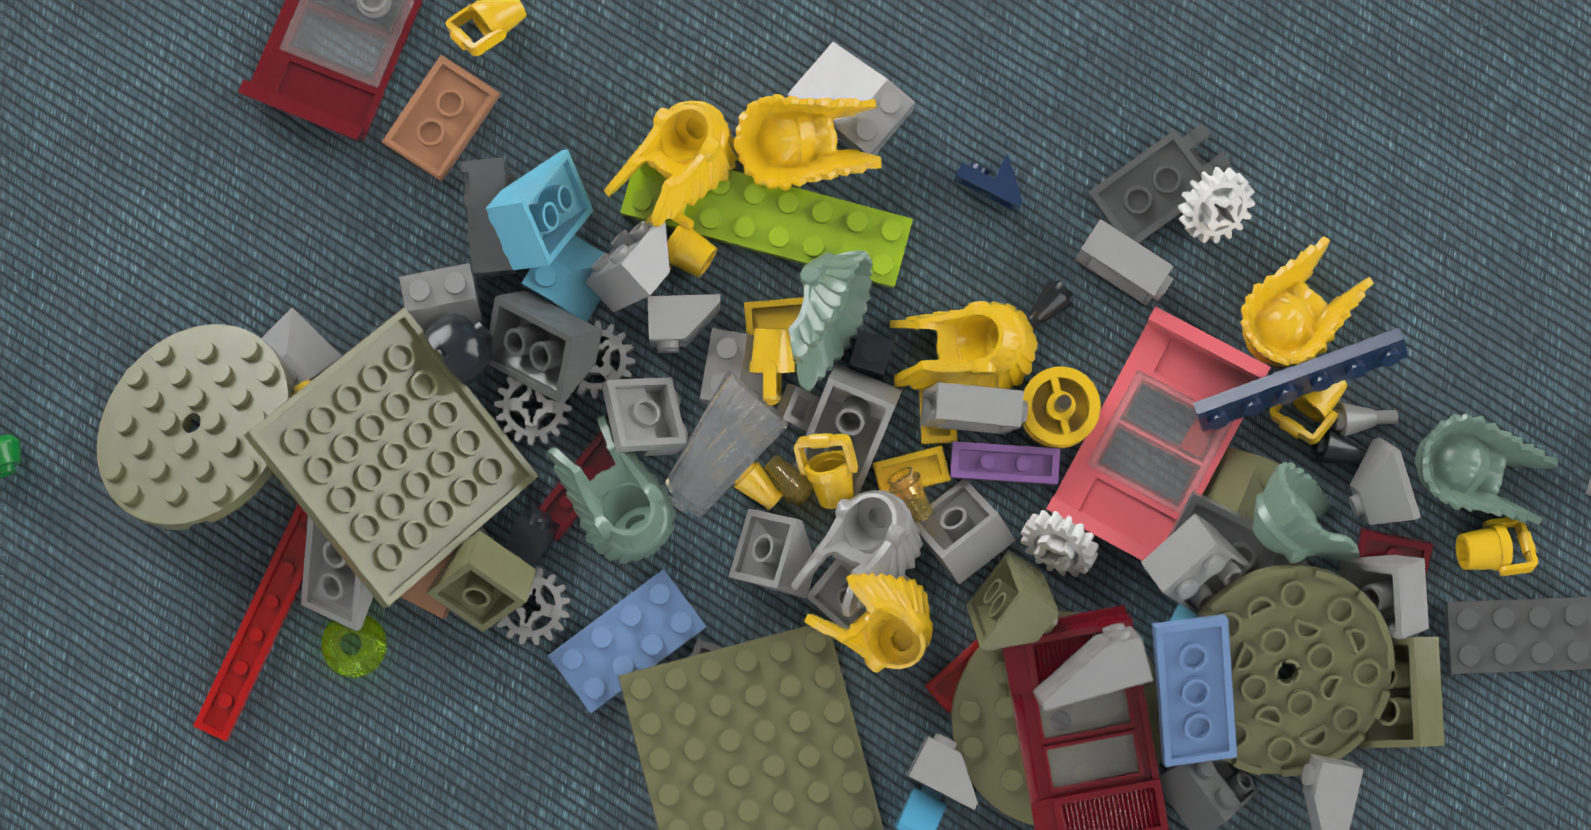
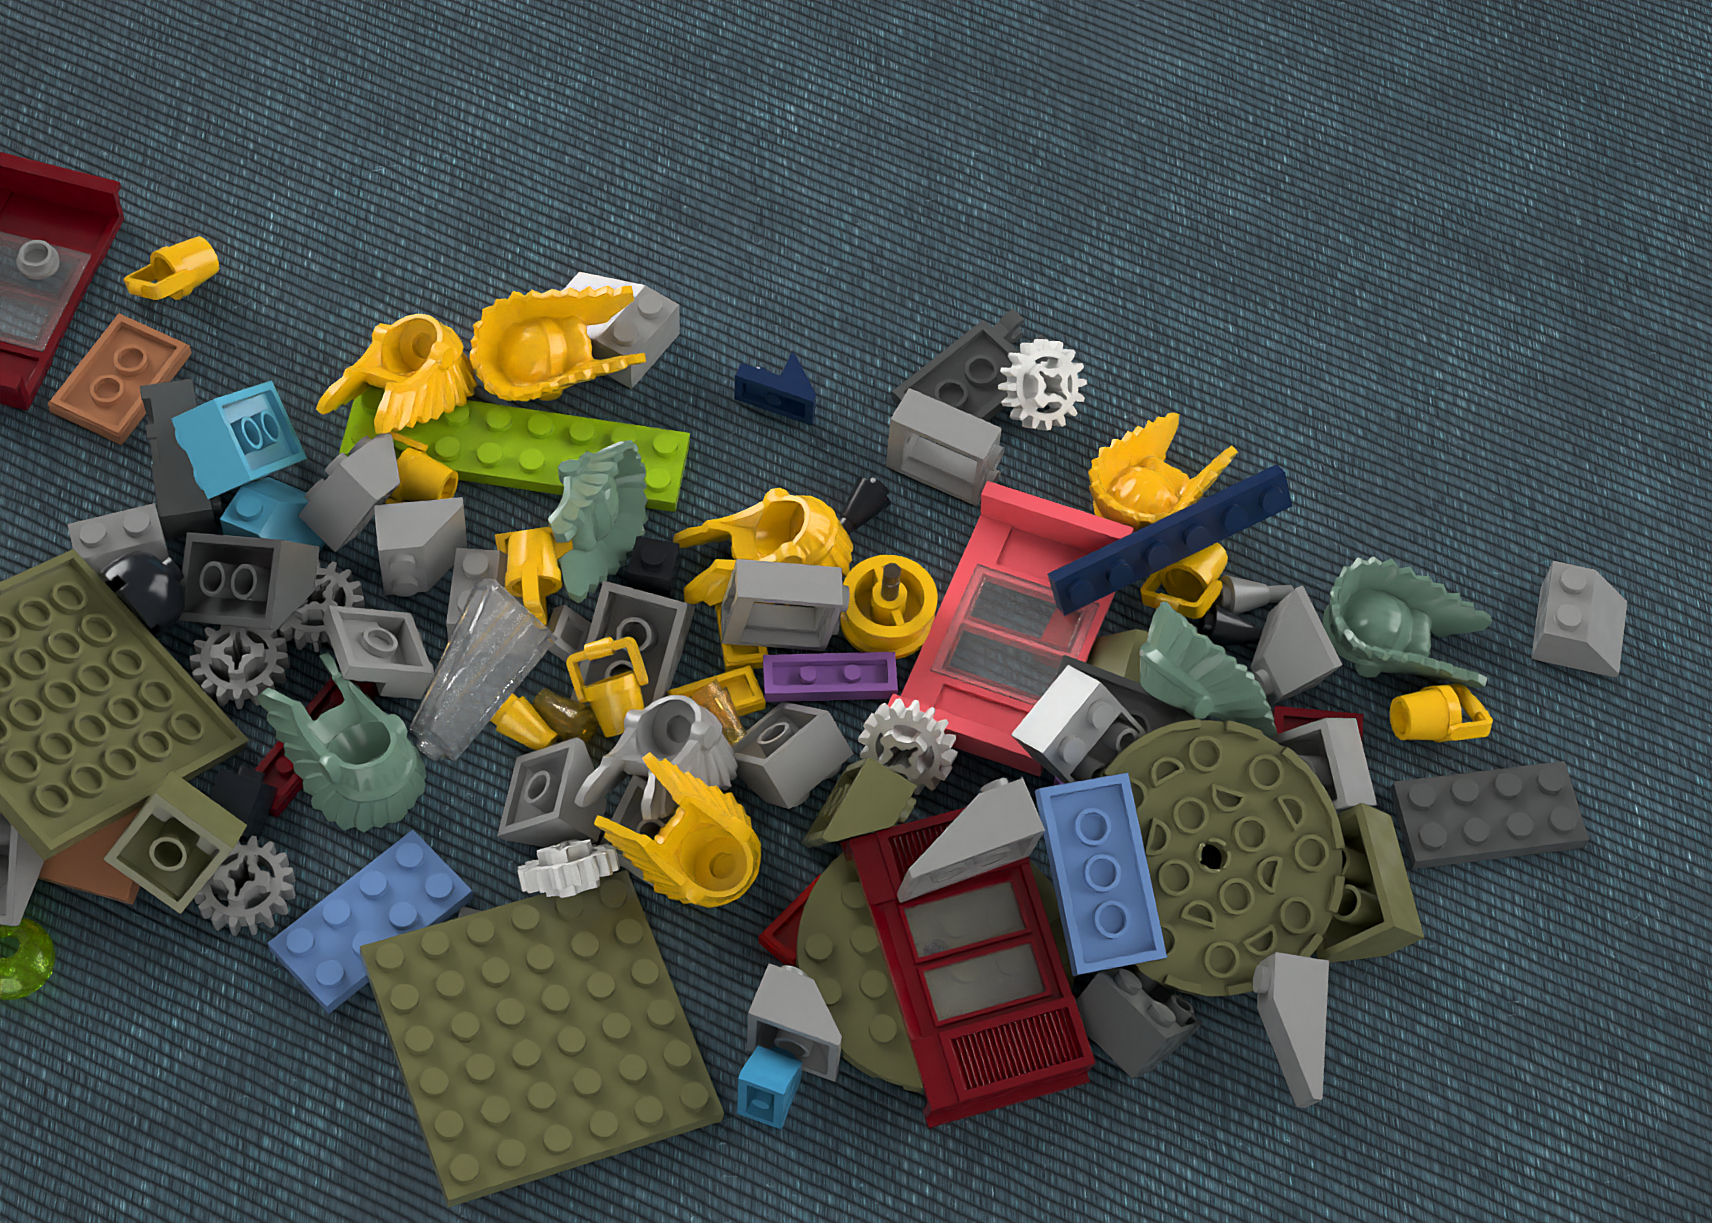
camera: 10 degrees left, 25 degrees down
(780, 624) = (568, 868): none -> white gear

